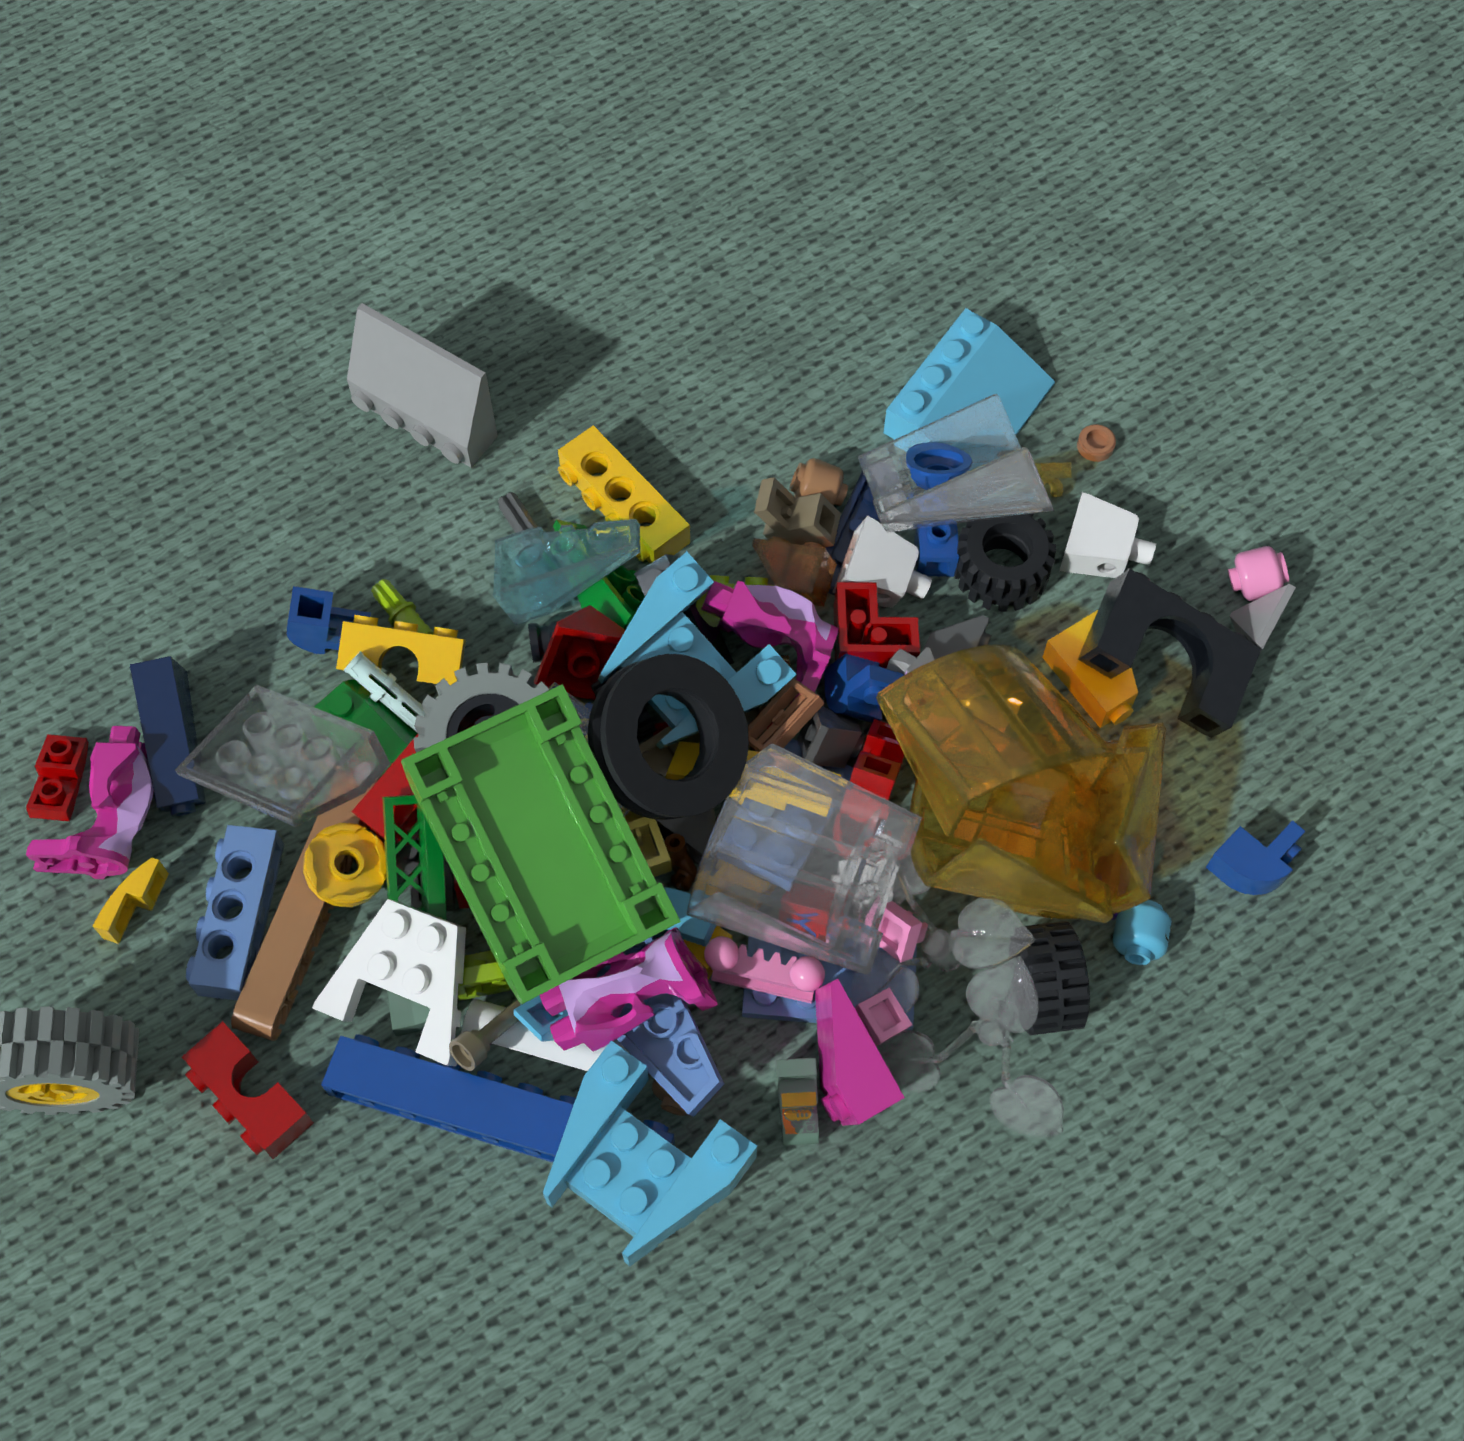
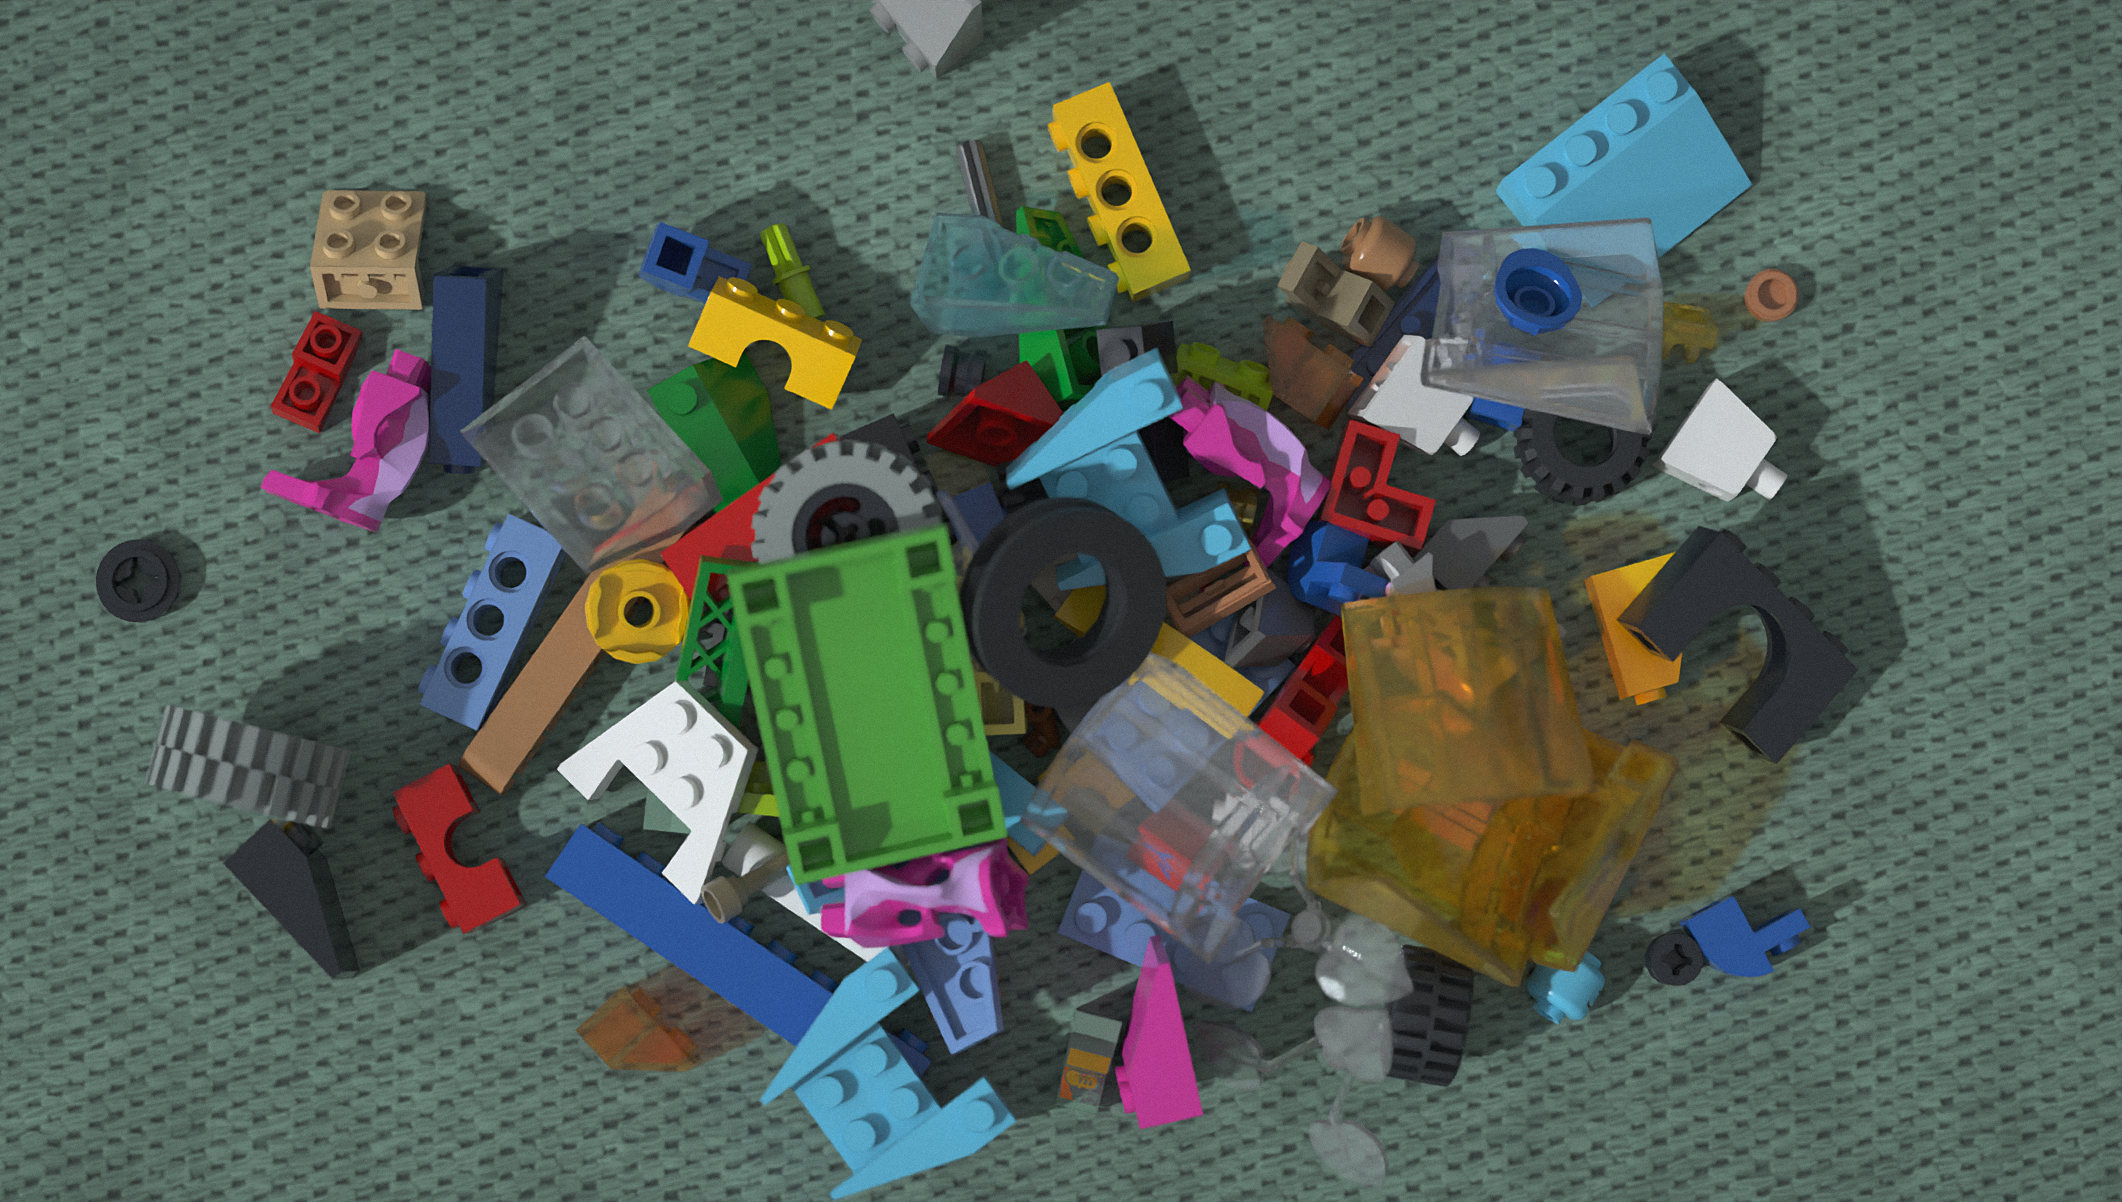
camera: 15 degrees right, 20 degrees up
(81, 684) = (369, 250): none -> tan bracket
(105, 1144) = (297, 888): none -> black slope
(138, 890) = (386, 557): yellow slope -> none
(361, 667) = (742, 392): light aqua pin -> none
(426, 1196) = (633, 1038): none -> clear orange slope
(733, 967) = (1050, 882): bright pink gear -> none
(883, 1016) = (1209, 1008): bright pink tile -> none
(900, 932) = (1269, 908): bright pink tile -> none
(1210, 900) = (1663, 958): none -> black wheel
(1258, 572) = (1904, 557): bright pink head -> none
(1260, 616) = (1878, 619): light grey slope -> none

